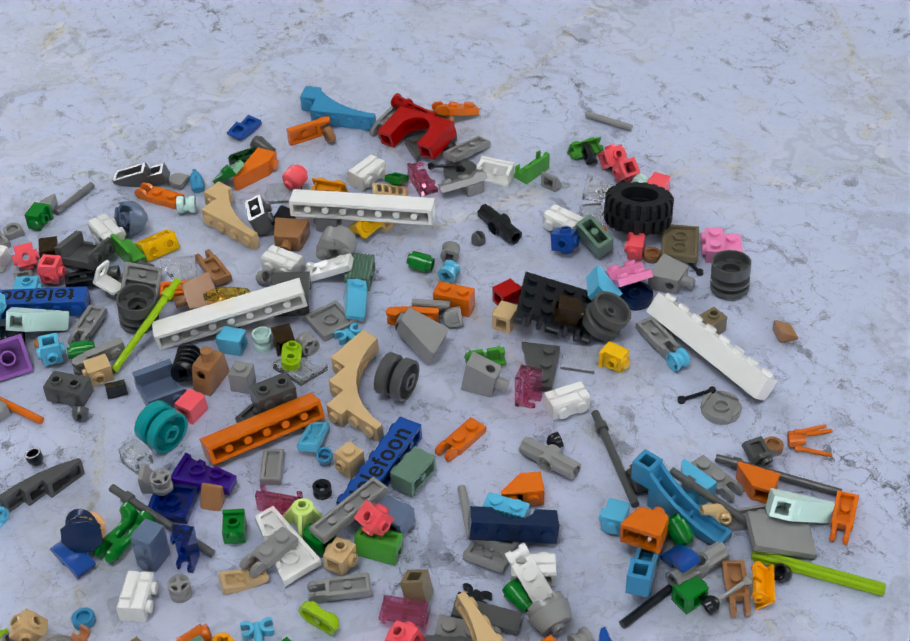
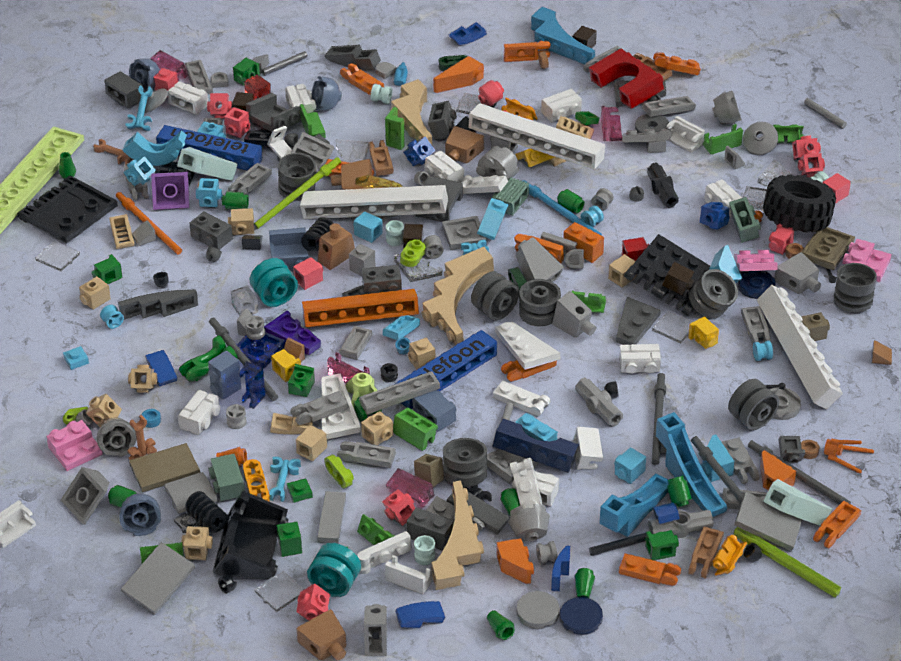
camera: 20 degrees right, 0 degrees up
(54, 584) = (134, 378): none -> tan brick
(57, 227) = (257, 86): none -> clear red brick
(83, 530) = (174, 347): dark blue piece -> none
(111, 349) = (259, 206): light grey hinge -> none
(158, 244) = (341, 124): yellow bracket -> none
(209, 513) = (283, 364): none -> yellow brick
(218, 236) = (394, 130): none -> bright green panel
(228, 172) = (432, 72): green plate -> none
(250, 251) = (418, 151): none -> blue brick
(259, 141) = (476, 53): dark grey cone -> none
(277, 594) = (311, 443): none -> tan brick
(359, 102) = (586, 36): none -> dark brown brick
(374, 518) = (415, 404): coral brick -> none
(382, 262) = (536, 192): none -> dark azure bar
(398, 101) = (632, 49): red pin -> none
(408, 352) = (516, 277): none -> dark green beam
(413, 471) = (472, 378): sand green brick -> none
(431, 165) = (625, 114): black hinge -> none
(442, 371) = (538, 302): none -> dark grey wheel
(450, 421) = (525, 346): none -> white wing
(451, 565) = (465, 461): none -> dark grey wheel
(470, 477) = (521, 398): none -> white plate
(523, 138) = (726, 108): none -> light grey cone
(527, 488) = (563, 420): orange slope -> none
(528, 386) = (608, 335): clear pink hinge -> none
(567, 508) = (589, 447): none -> white hinge
(569, 164) = (761, 145): none -> light grey dish
(589, 154) = (785, 140): black slope -> none
(645, 529) = (646, 479): orange torso -> none
(691, 626) = (649, 570): none -> orange hinge
(703, 416) = (753, 404): none -> dark grey wheel
(712, 603) = (676, 557): hinge -> none
(717, 512) = (720, 485): tan arm -> none

